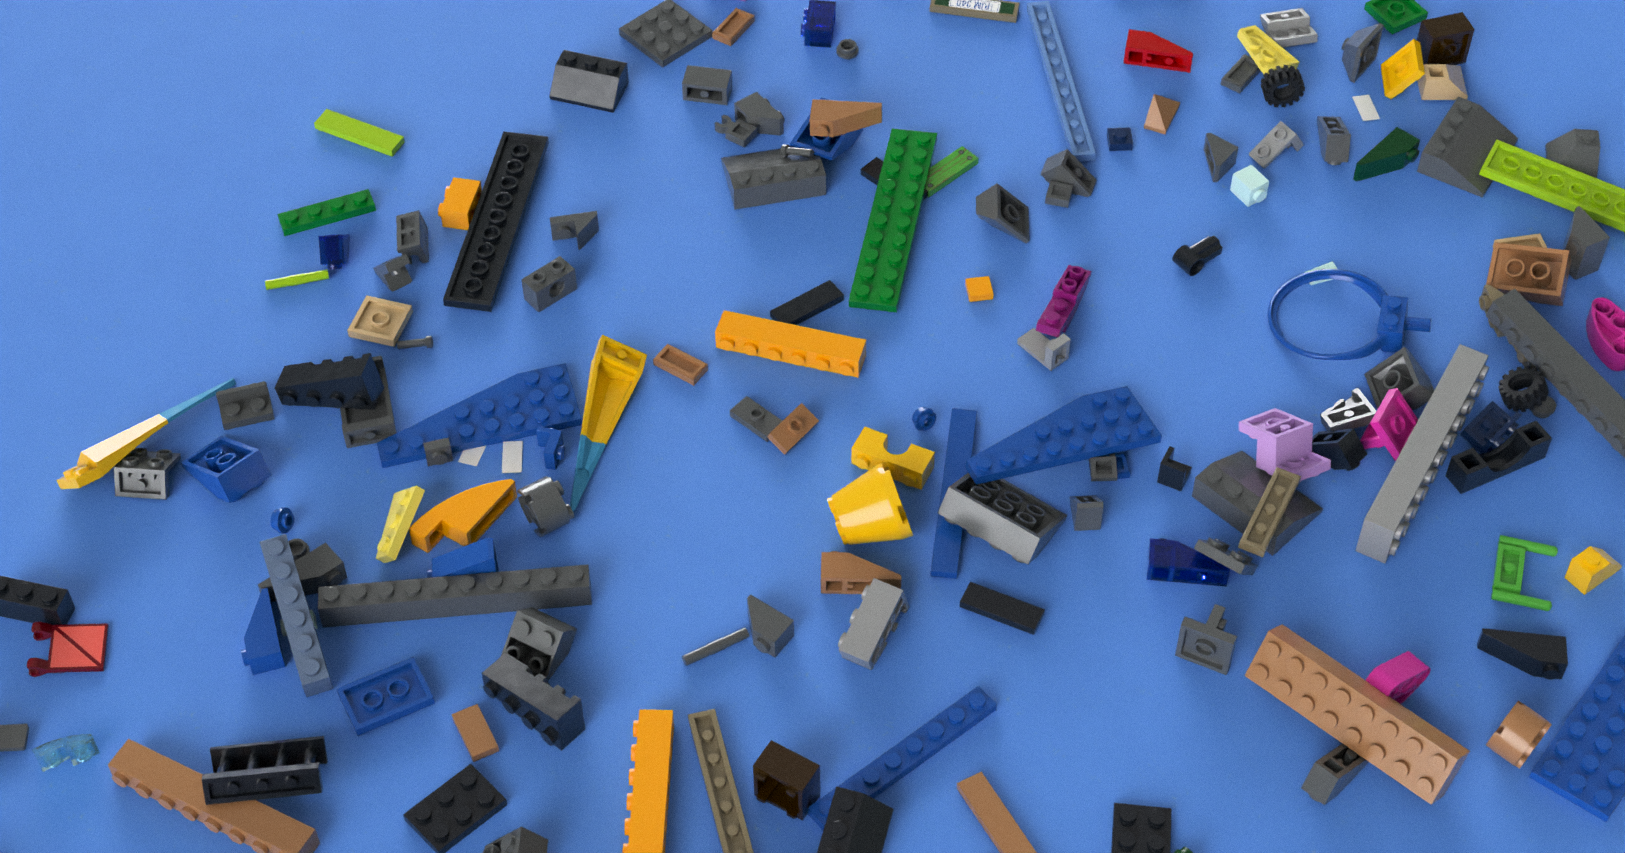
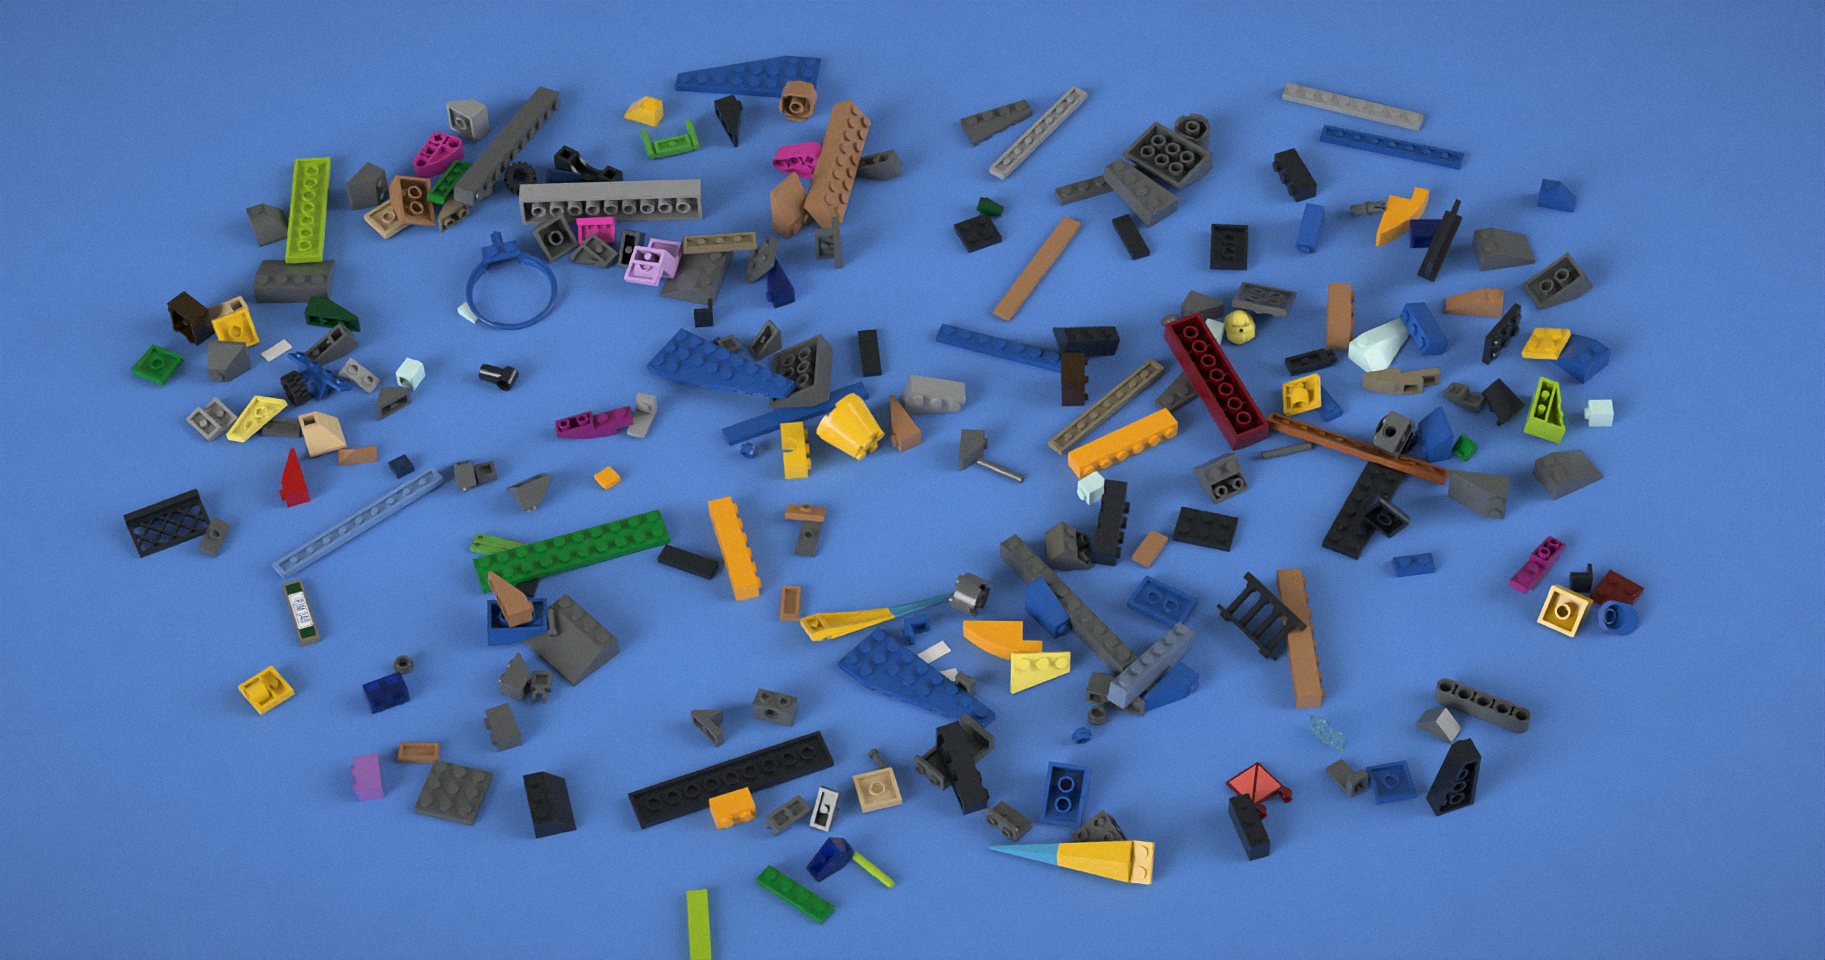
camera: 120 degrees left, 0 degrees up
(607, 717) = (1091, 488): none -> light aqua brick
(1205, 88) = (321, 433): none -> tan slope
(1296, 112) = (316, 377): none -> blue bracket
(1299, 609) = (788, 207): none -> medium nougat slope
(1556, 318) = (445, 186): none -> green plate

